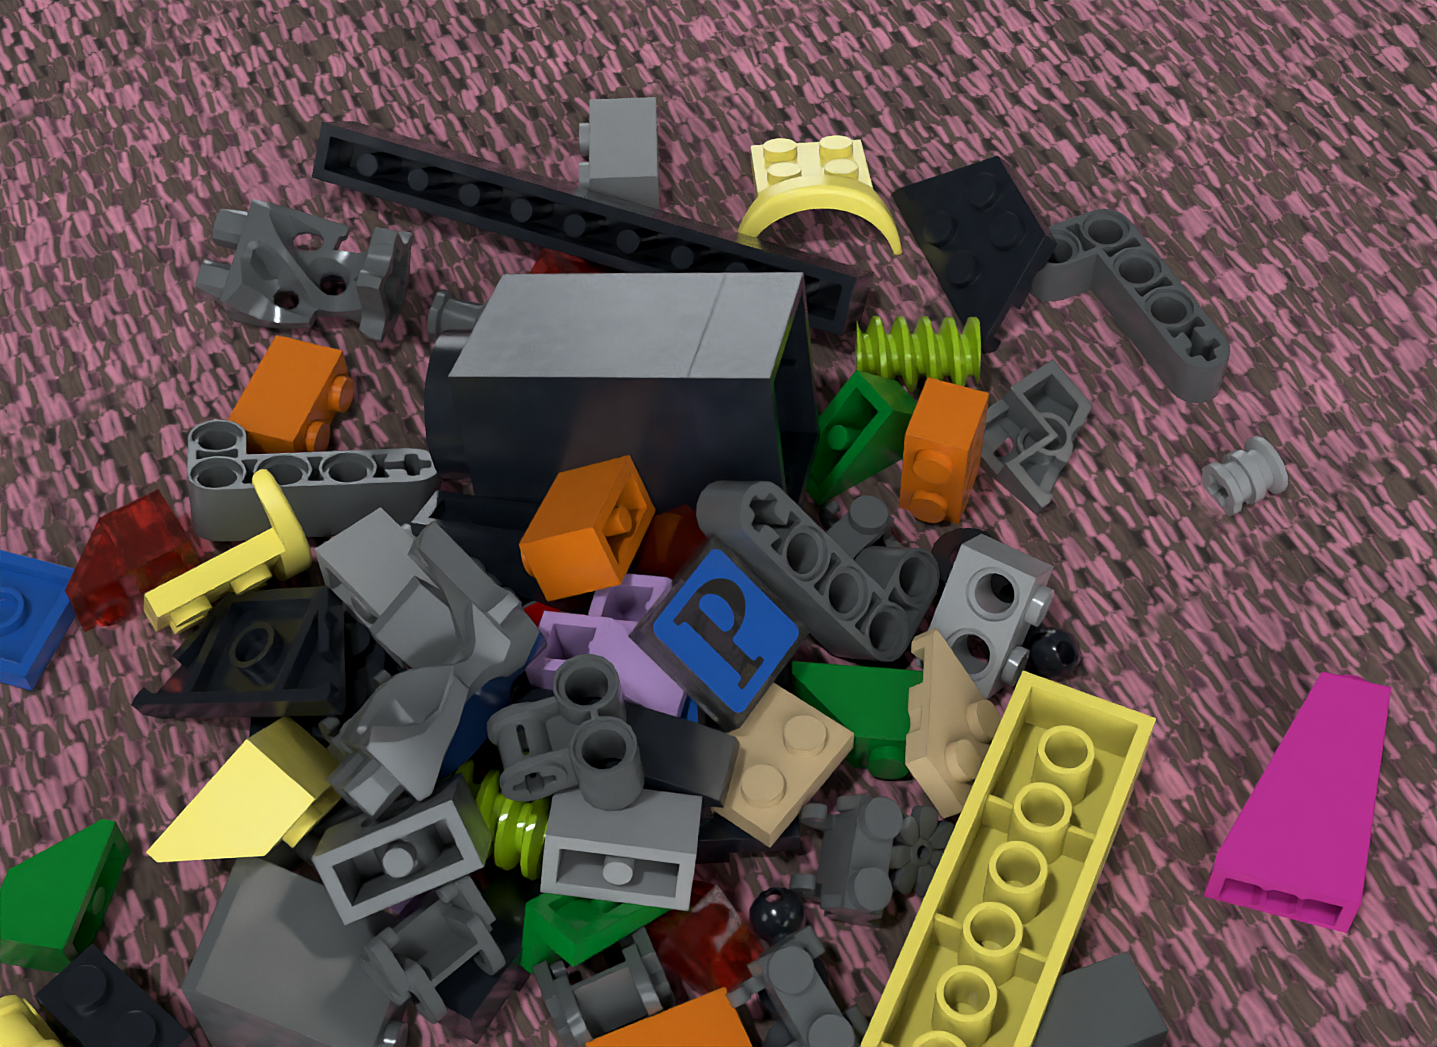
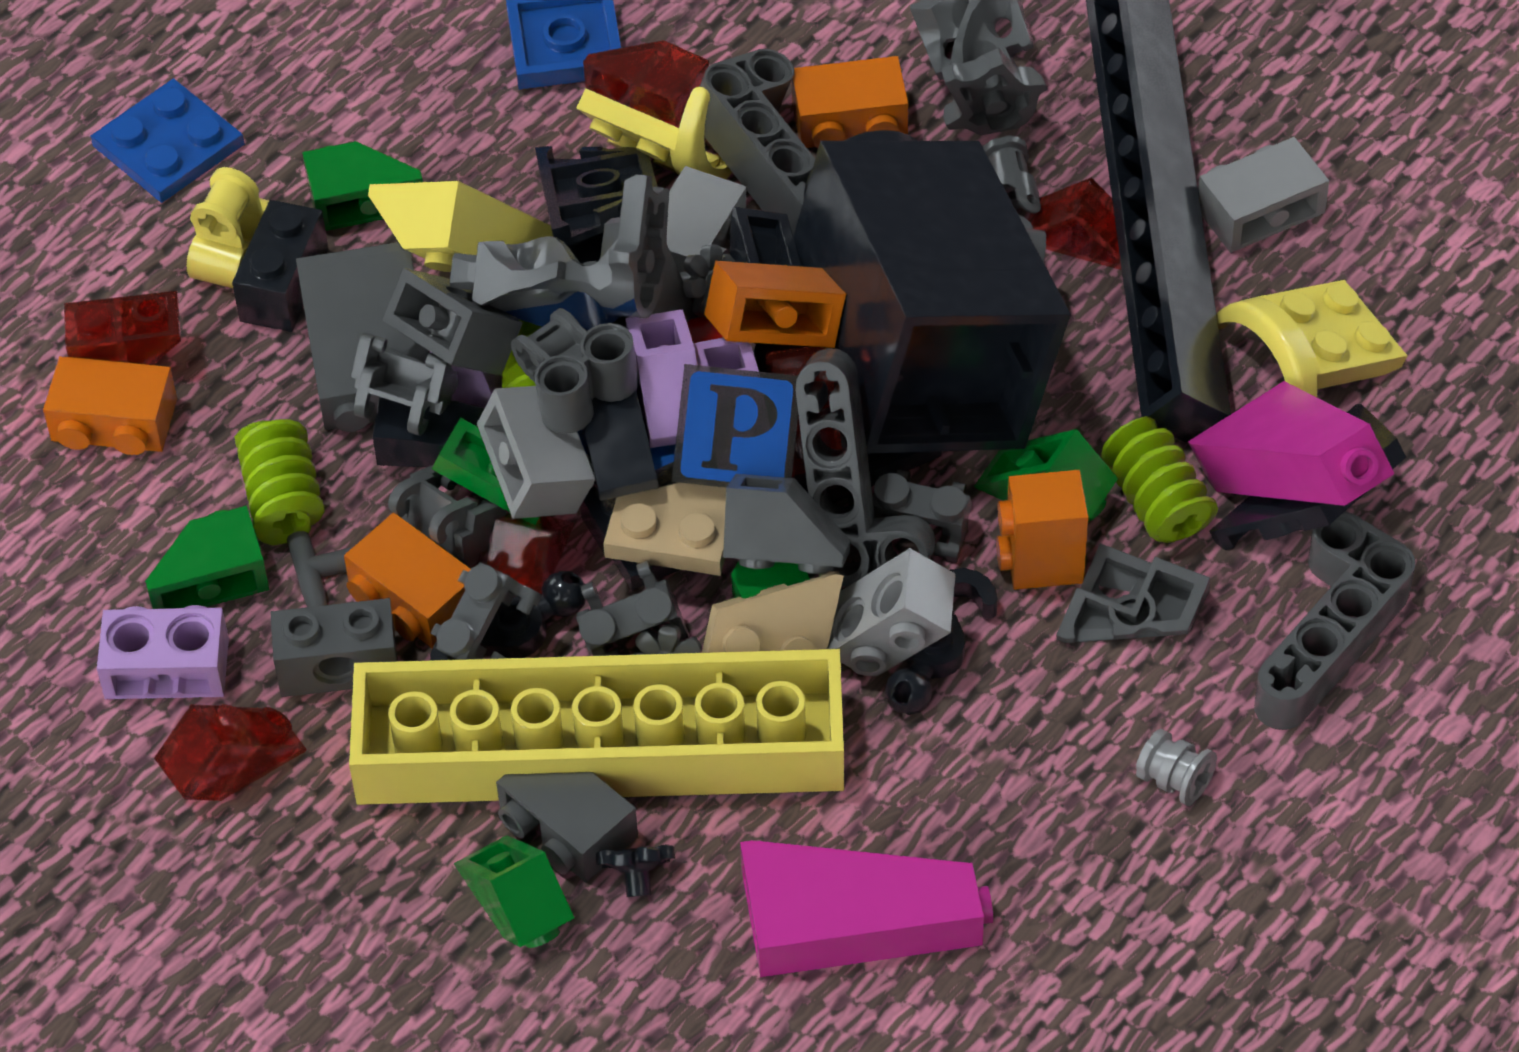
camera: 65 degrees right, 0 degrees up
(849, 657) = (780, 522): none -> dark grey slope
(976, 222) = (1292, 450): none -> dark pink slope
(1171, 985) = (636, 865): none -> black plant

